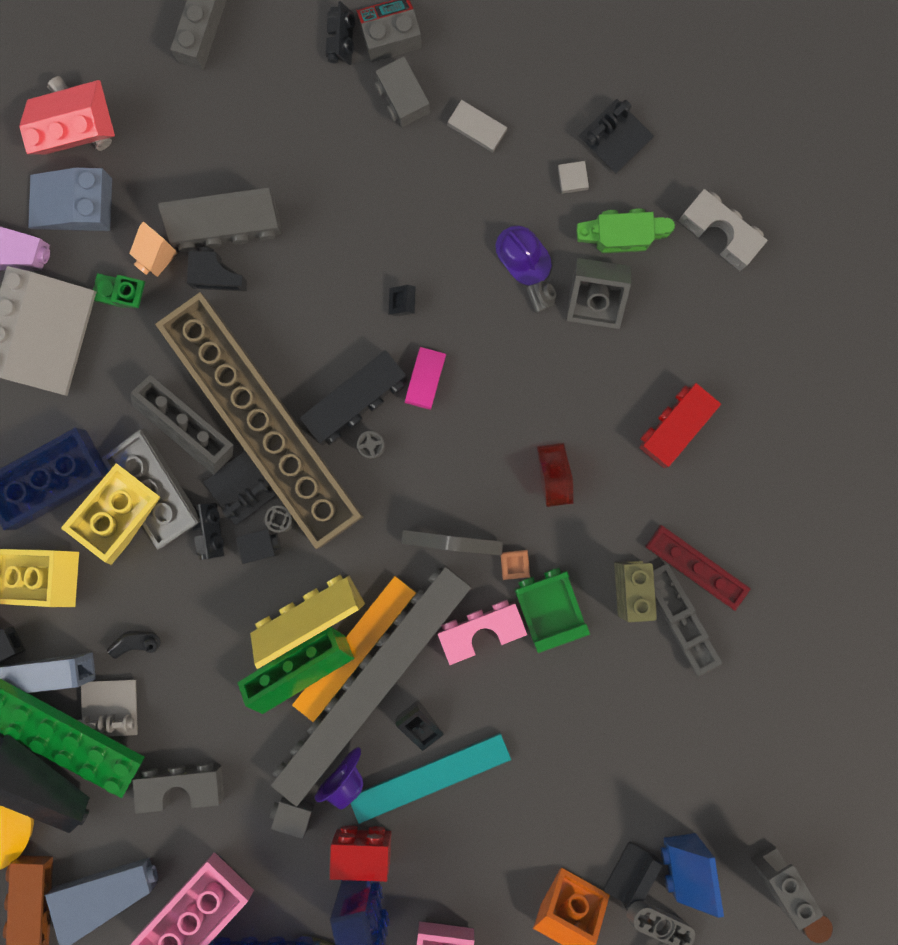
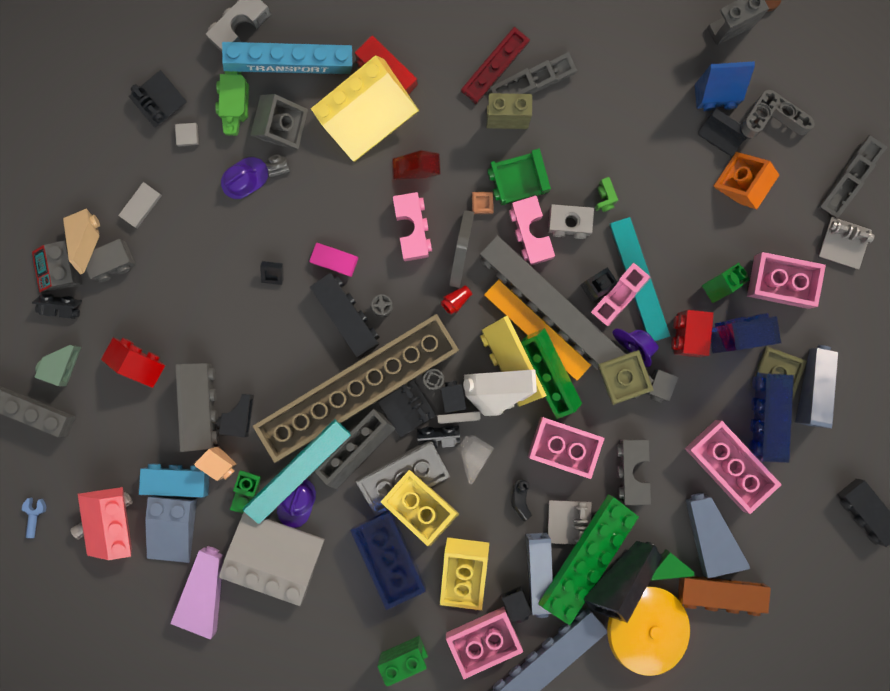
camera: 85 degrees left, 0 degrees up
(57, 846) = (671, 567): none -> green slope
(75, 28) = (32, 515): none -> medium blue bar
(113, 356) = (298, 505): none -> dark purple piece
(126, 197) = (173, 481): none -> dark azure brick
(146, 353) = (296, 471): none -> tile
(186, 579) = (474, 455): none -> clear slope
(202, 697) = (565, 447): none -> bright pink brick
(232, 555) = (459, 417): none -> light grey tile
(262, 42) = (58, 366): none -> sand green slope
(267, 605) = (499, 390): none -> white wedge
(271, 133) = (132, 363): none -> red brick
(297, 769) = (625, 377): none -> olive tile
(384, 539) = (456, 299): none -> red cone
(405, 755) = (621, 295): none -> bright pink arch
(425, 54) = (81, 238): none -> tan slope
(433, 893) = (726, 282): none -> green slope
(500, 472) = (409, 208): none -> bright pink arch
(503, 698) = (582, 215): none -> light grey brick
(541, 727) = (607, 192): none -> bright green bracket
(623, 403) = (365, 108): none -> light yellow slope
(681, 295) = (286, 58): none -> dark azure brick

